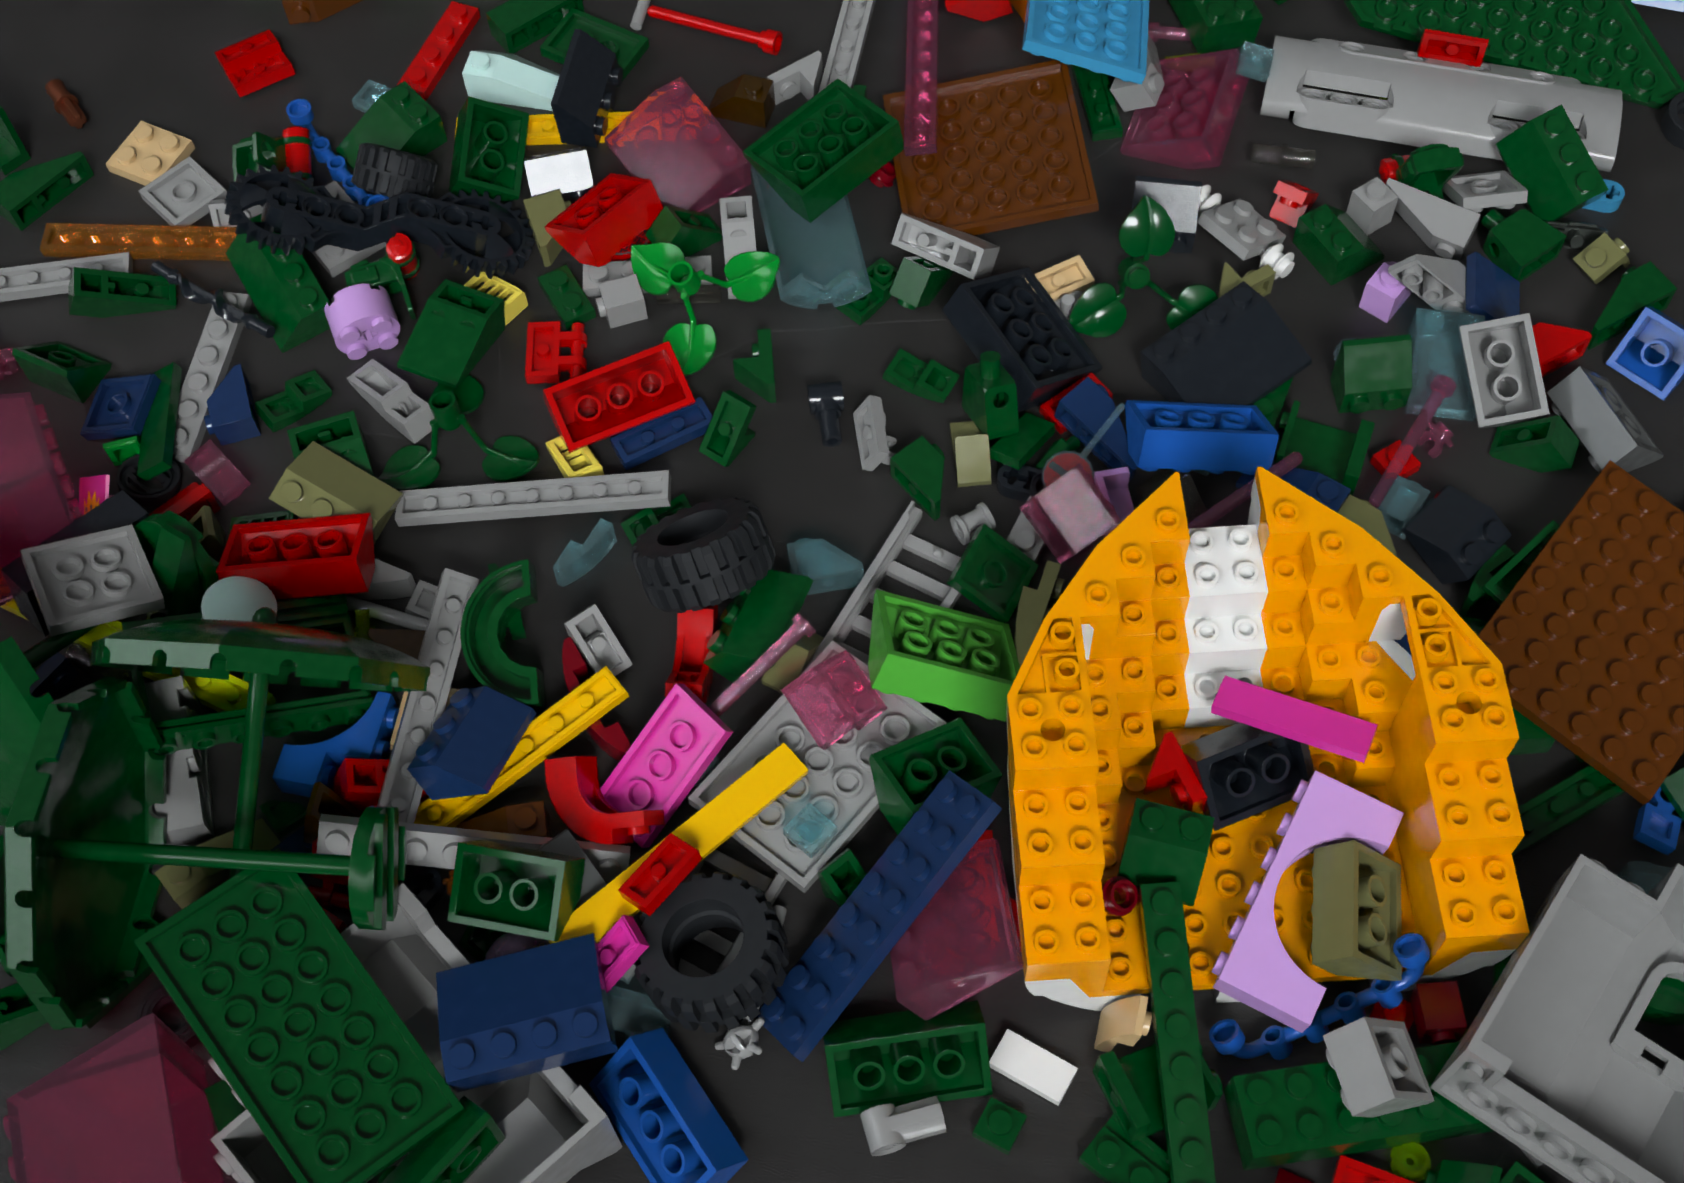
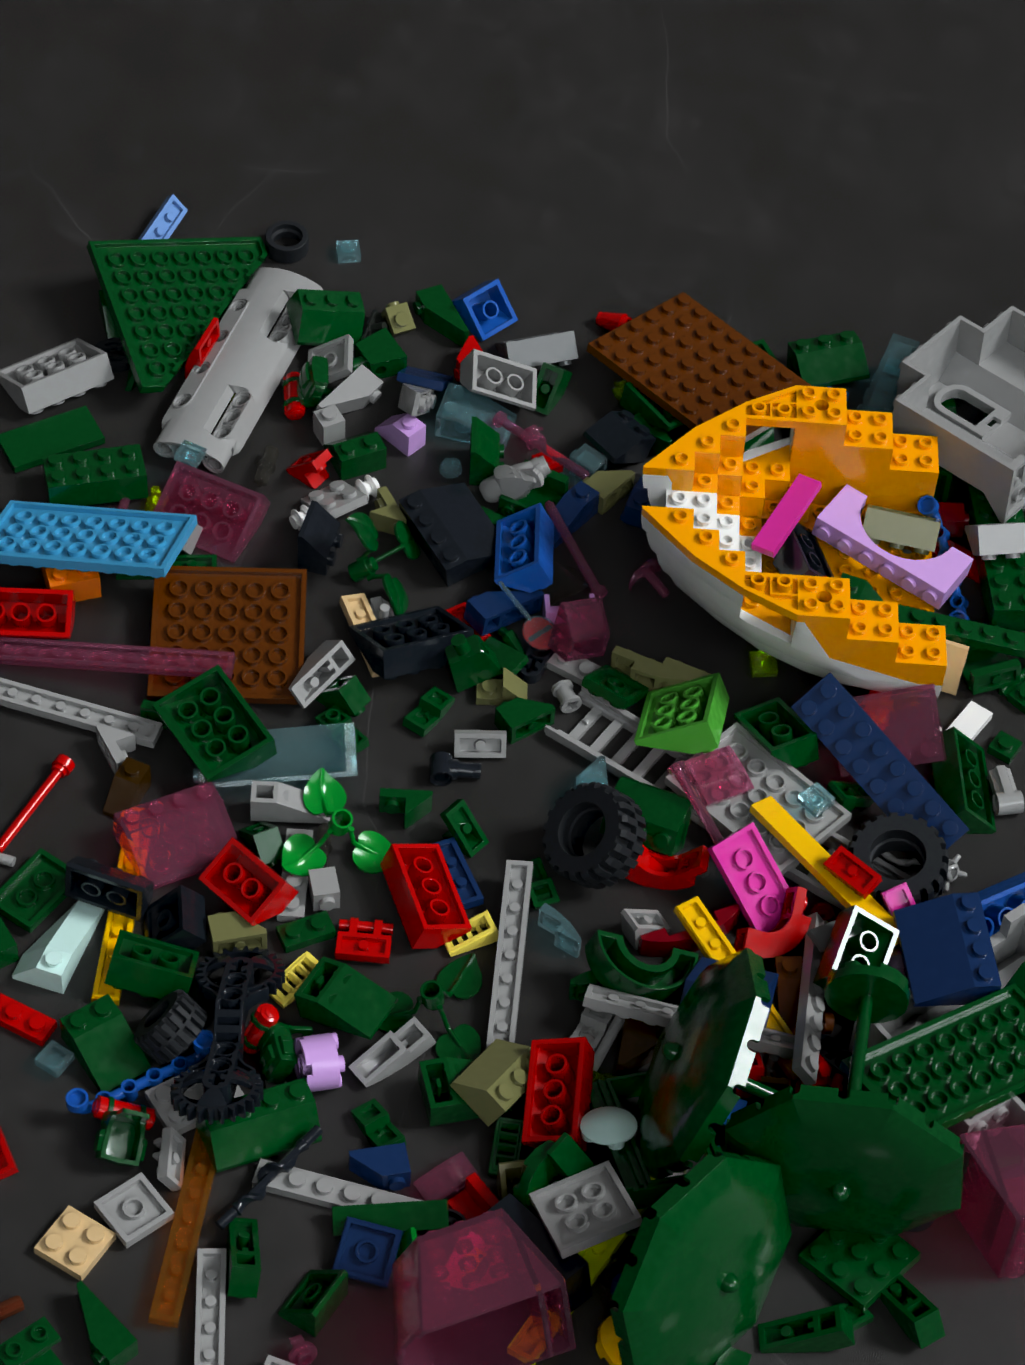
camera: 90 degrees left, 10 degrees down
(1331, 414) = (515, 480): none -> light grey animal

